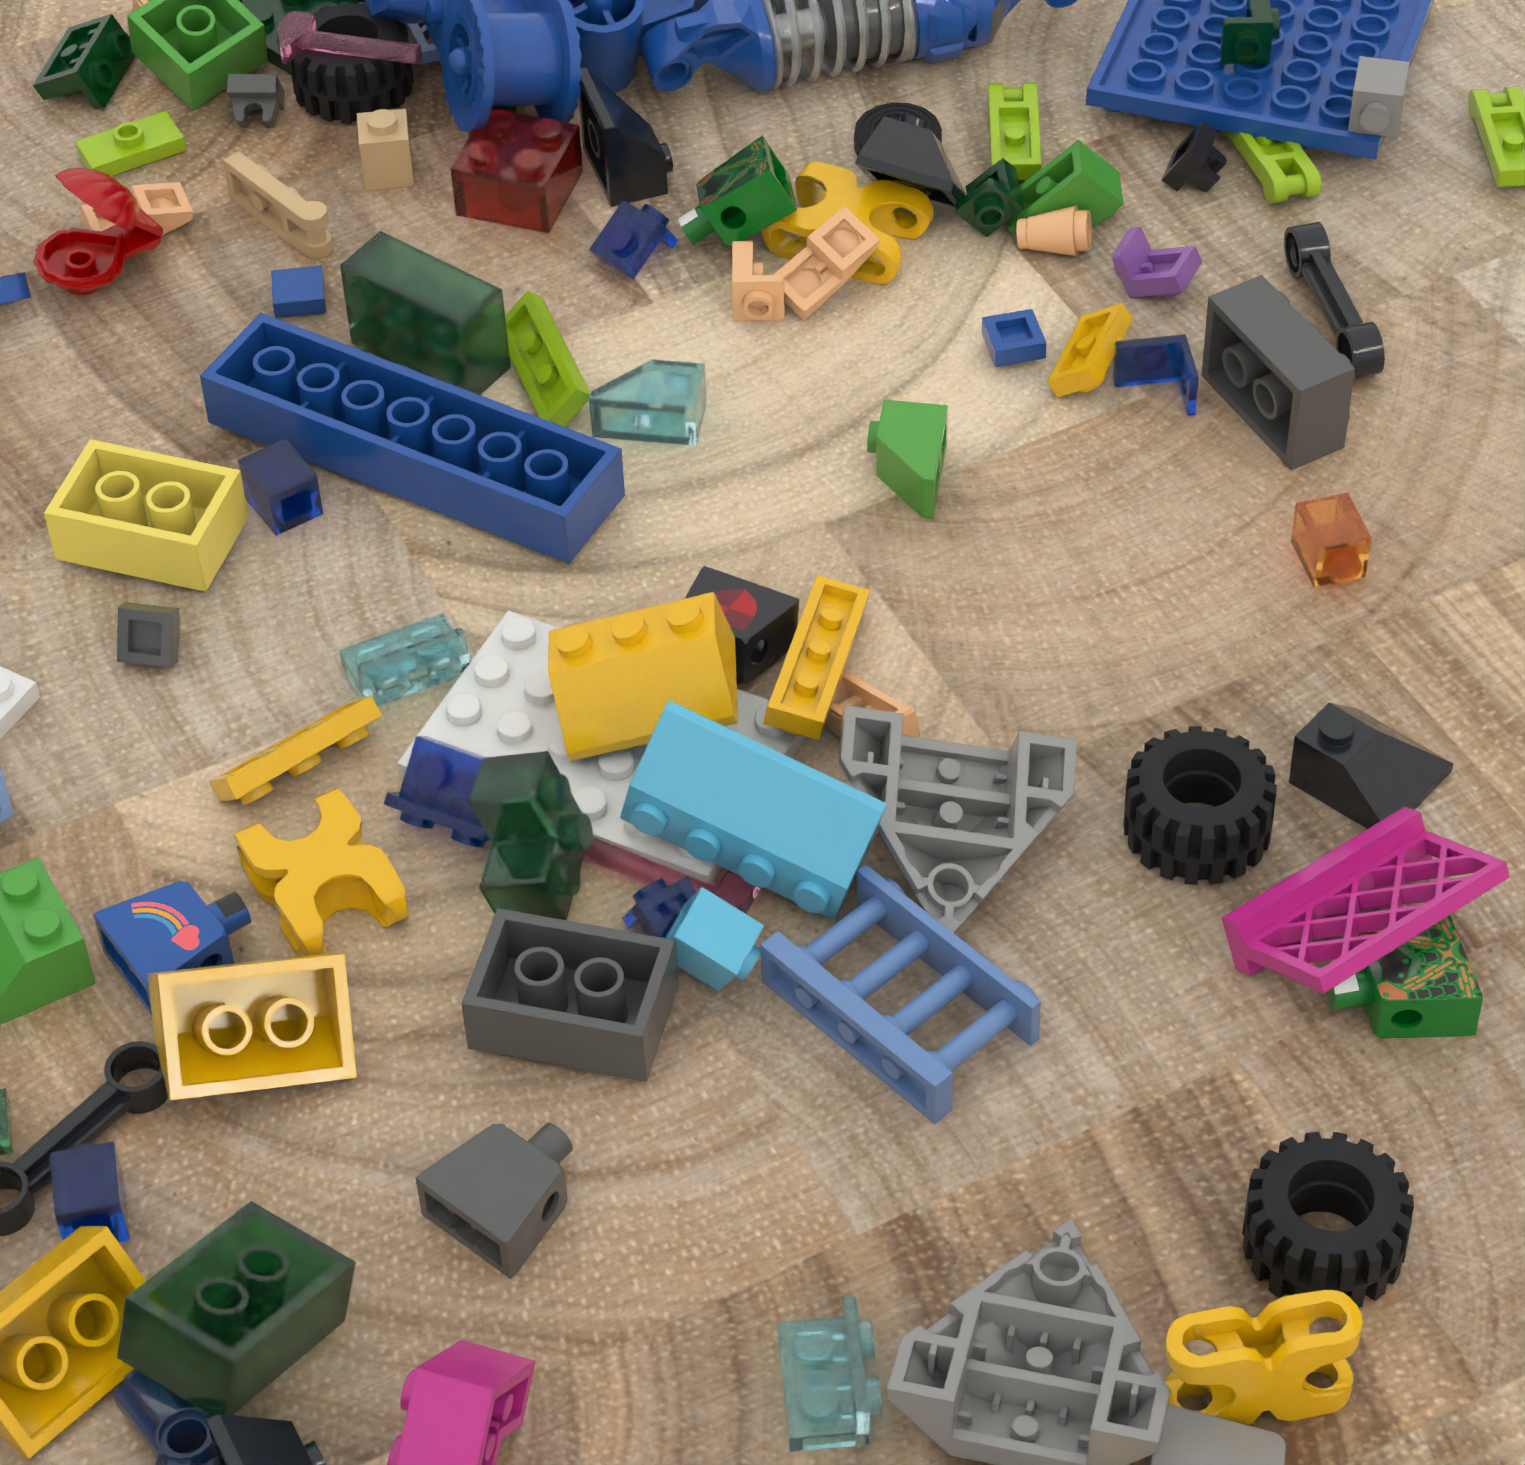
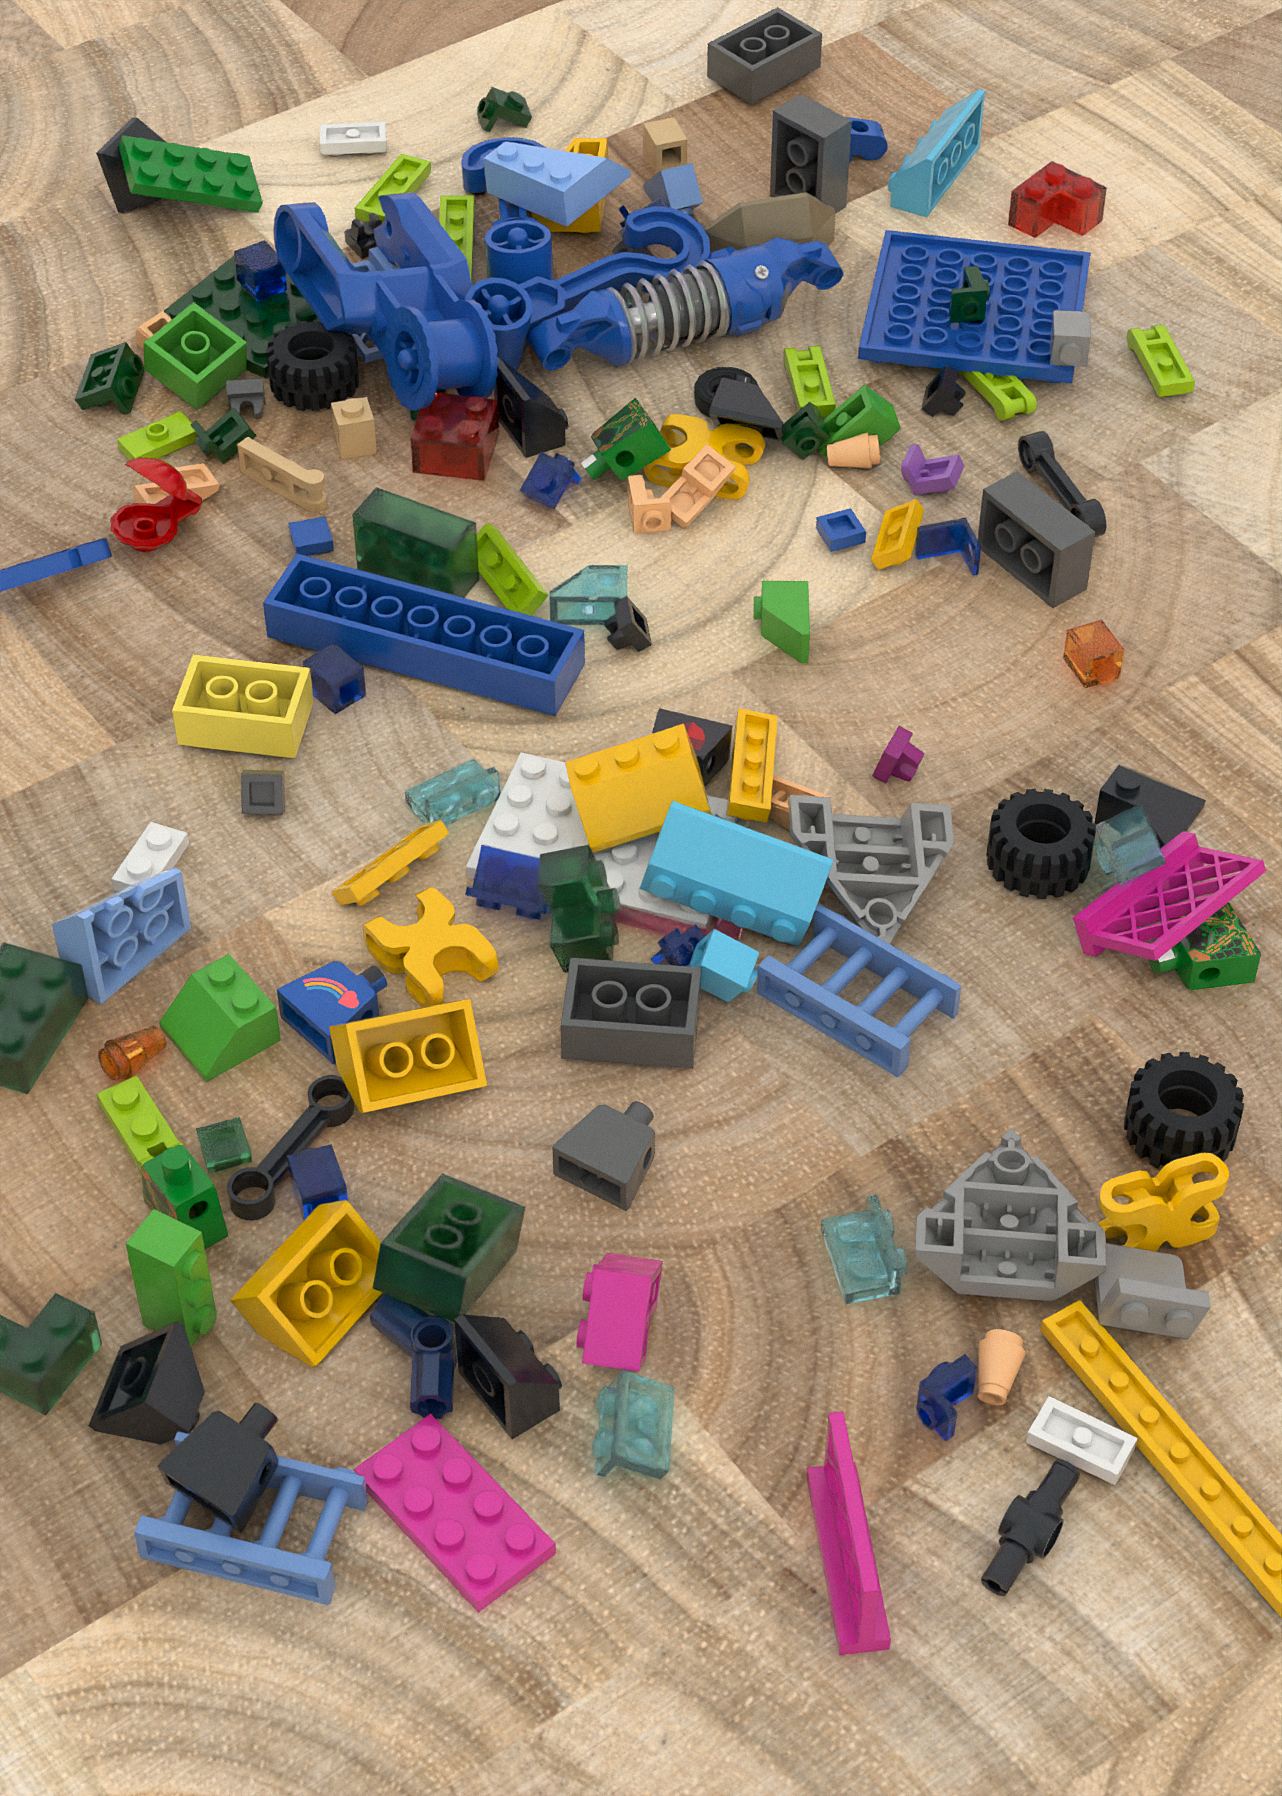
camera: 10 degrees left, 0 degrees up
(210, 147) = (223, 435): none -> dark green bracket
(298, 34) = (275, 348): clear pink piece -> none
(693, 448) = (628, 626): none -> black tile
(1025, 664) = (899, 758): none -> magenta tile
(1321, 820) = (1128, 845): none -> clear light blue brick

